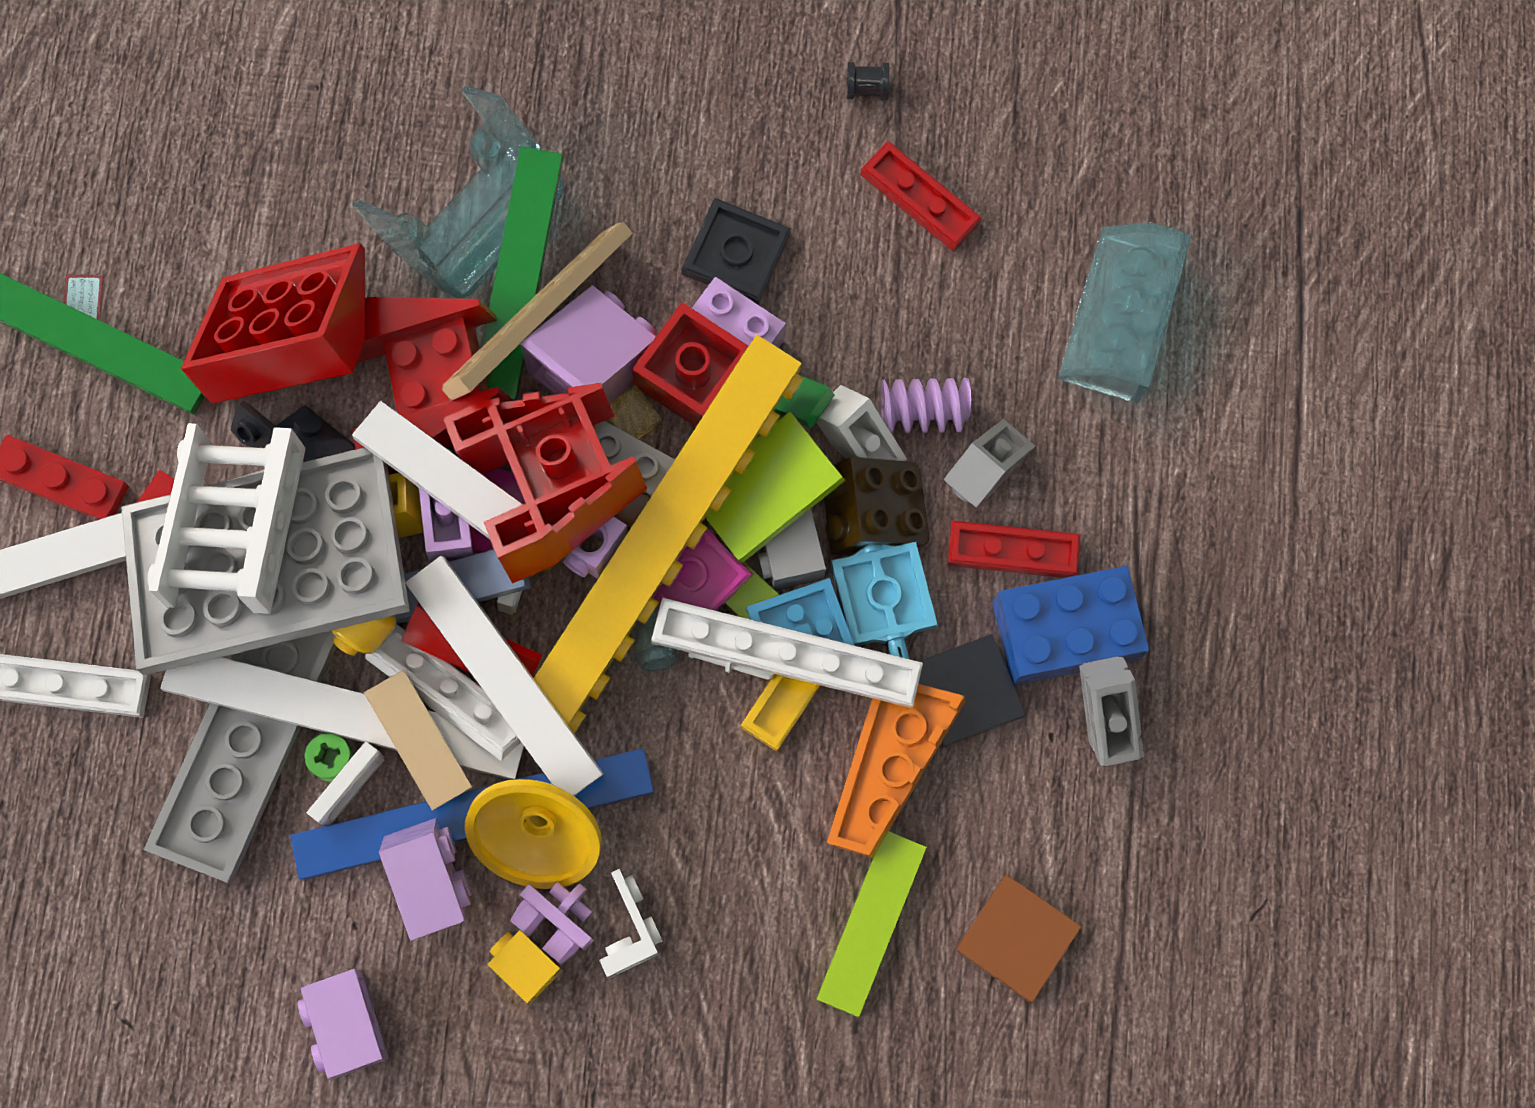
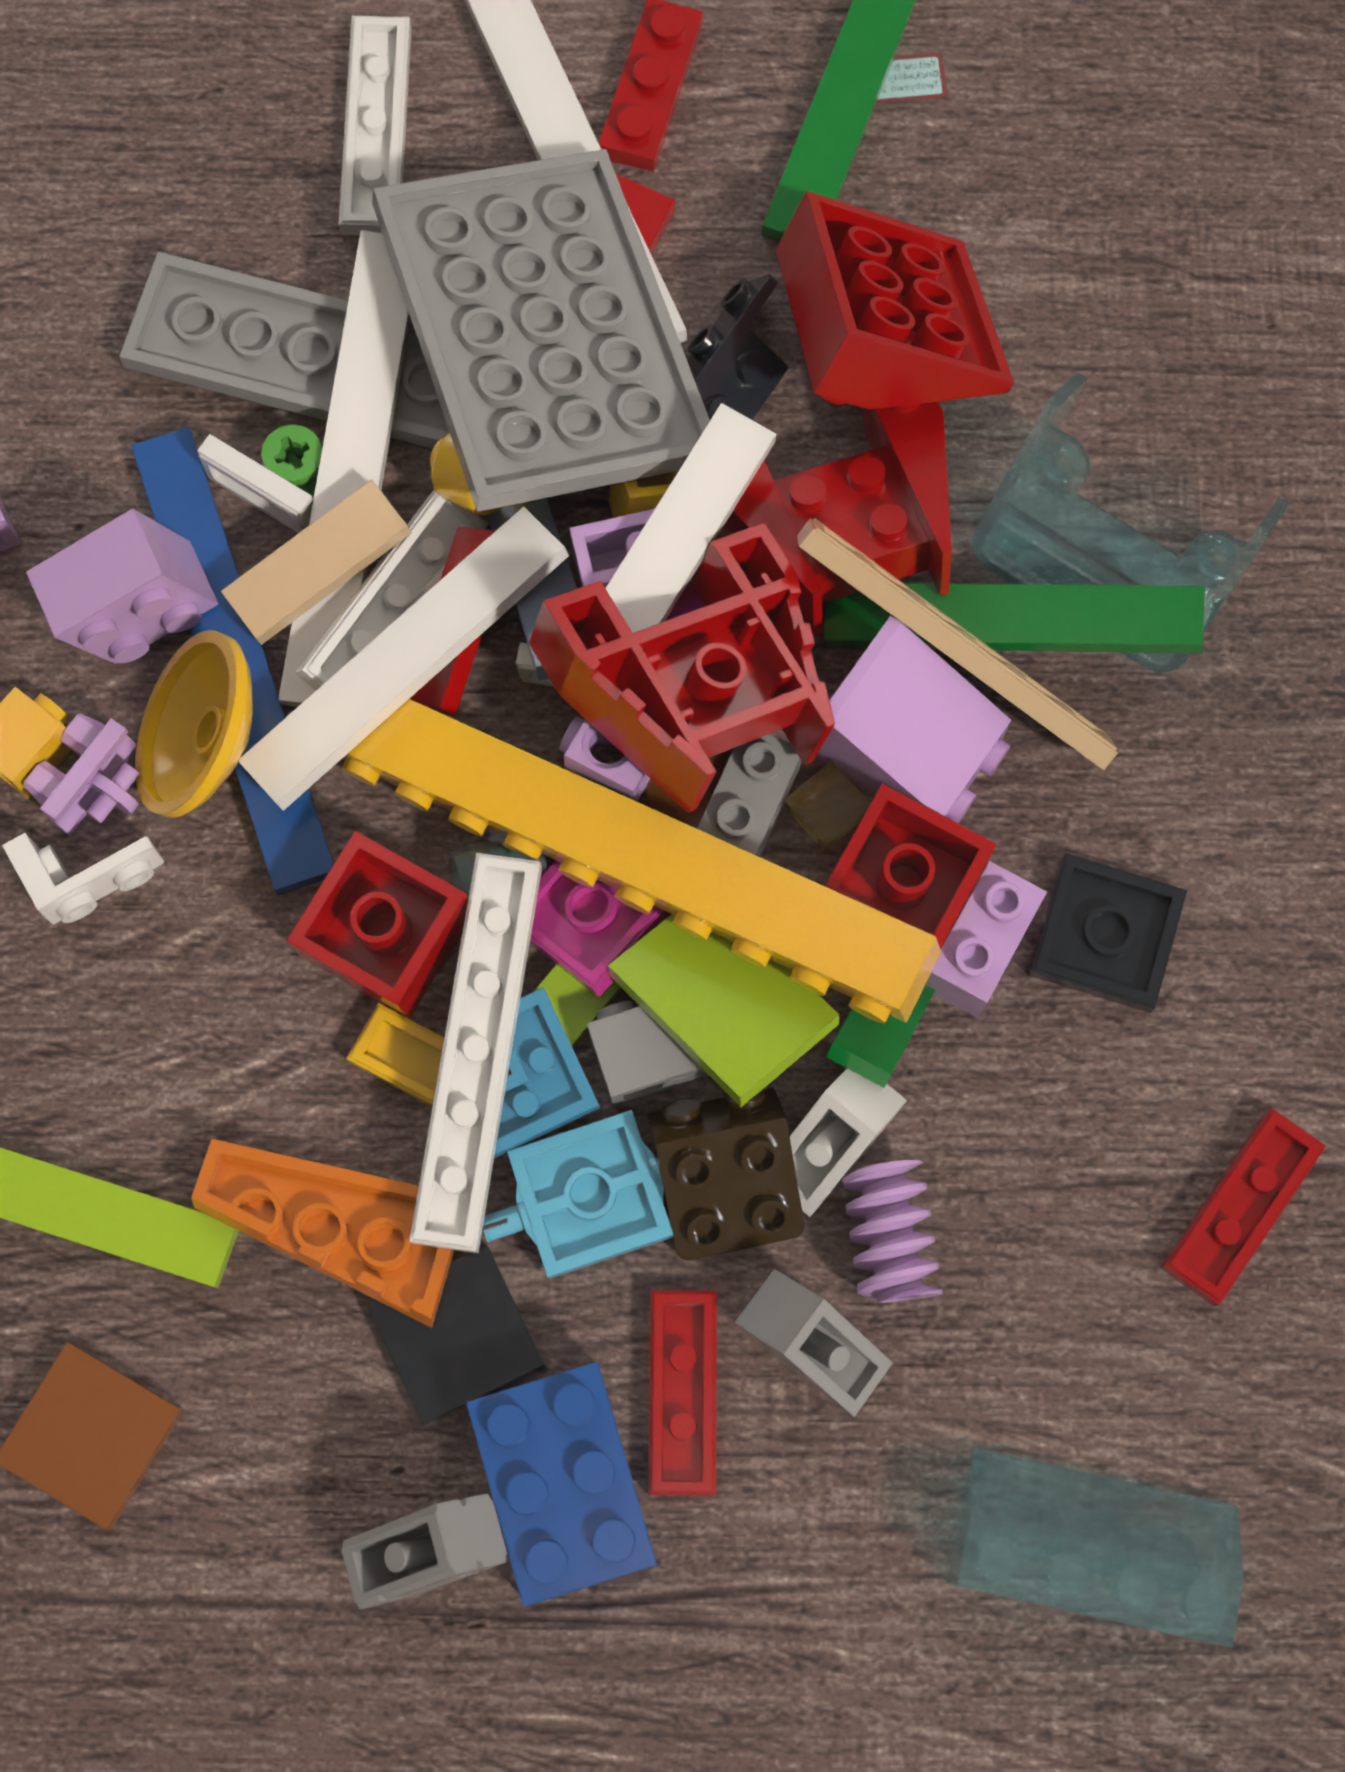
camera: 90 degrees right, 0 degrees up
(262, 541) = (580, 315): white fence -> none
(690, 712) = (381, 924): none -> red brick

